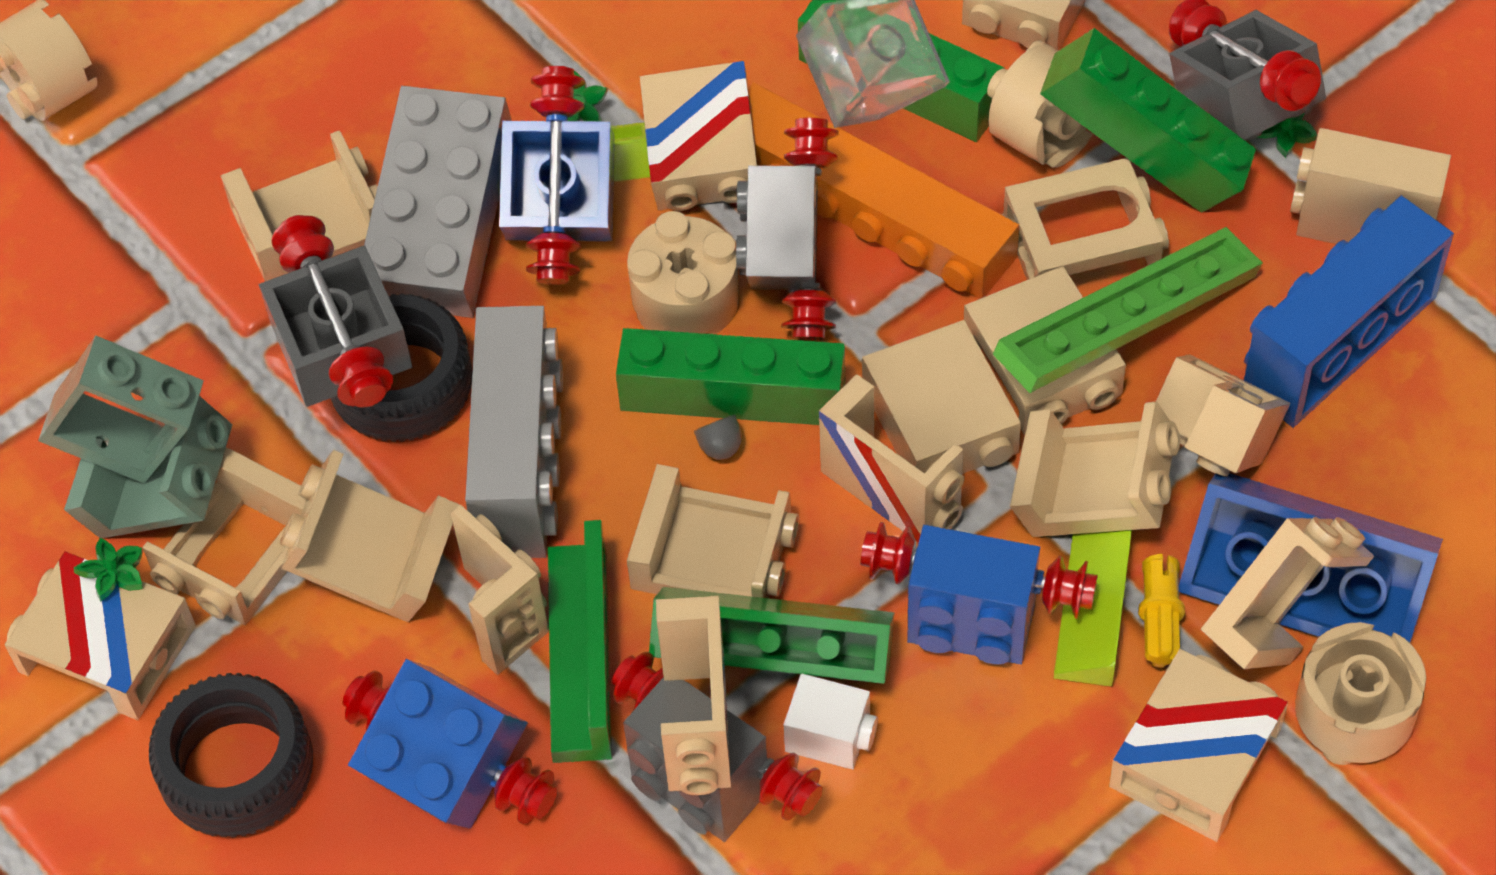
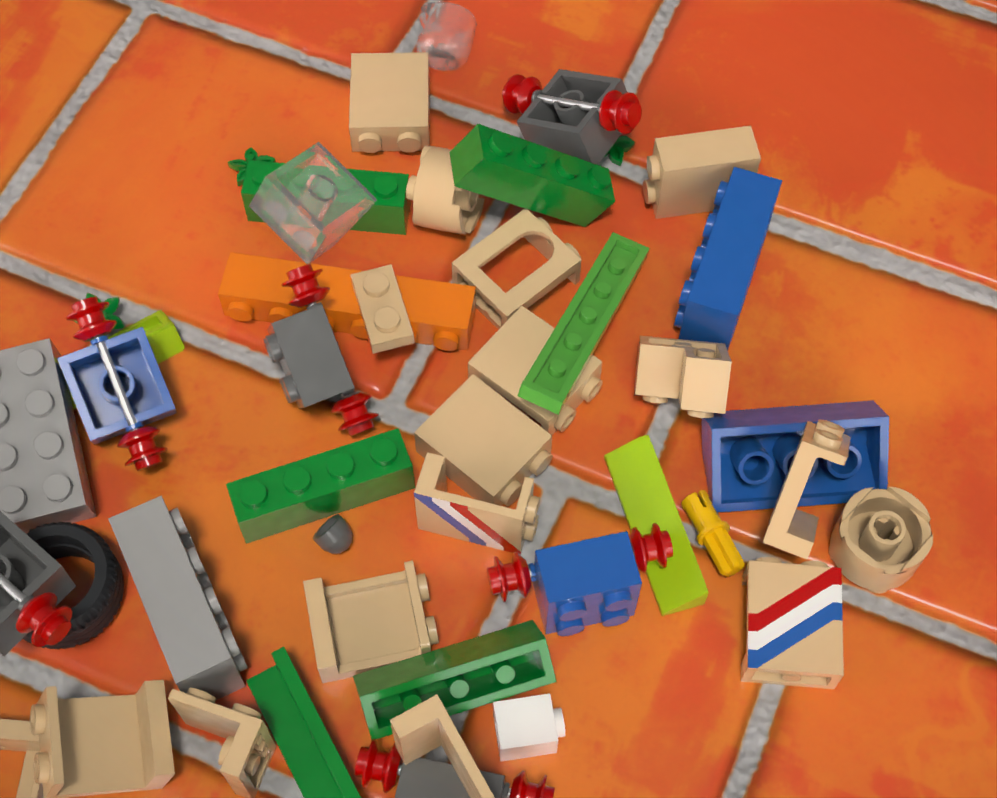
camera: 30 degrees left, 5 degrees up
(683, 275) = (248, 422): tan brick -> none
(698, 134) = (208, 307): panel -> none
(894, 207) = (382, 308): none -> tan plate
(1094, 474) = (623, 452): tan panel -> none

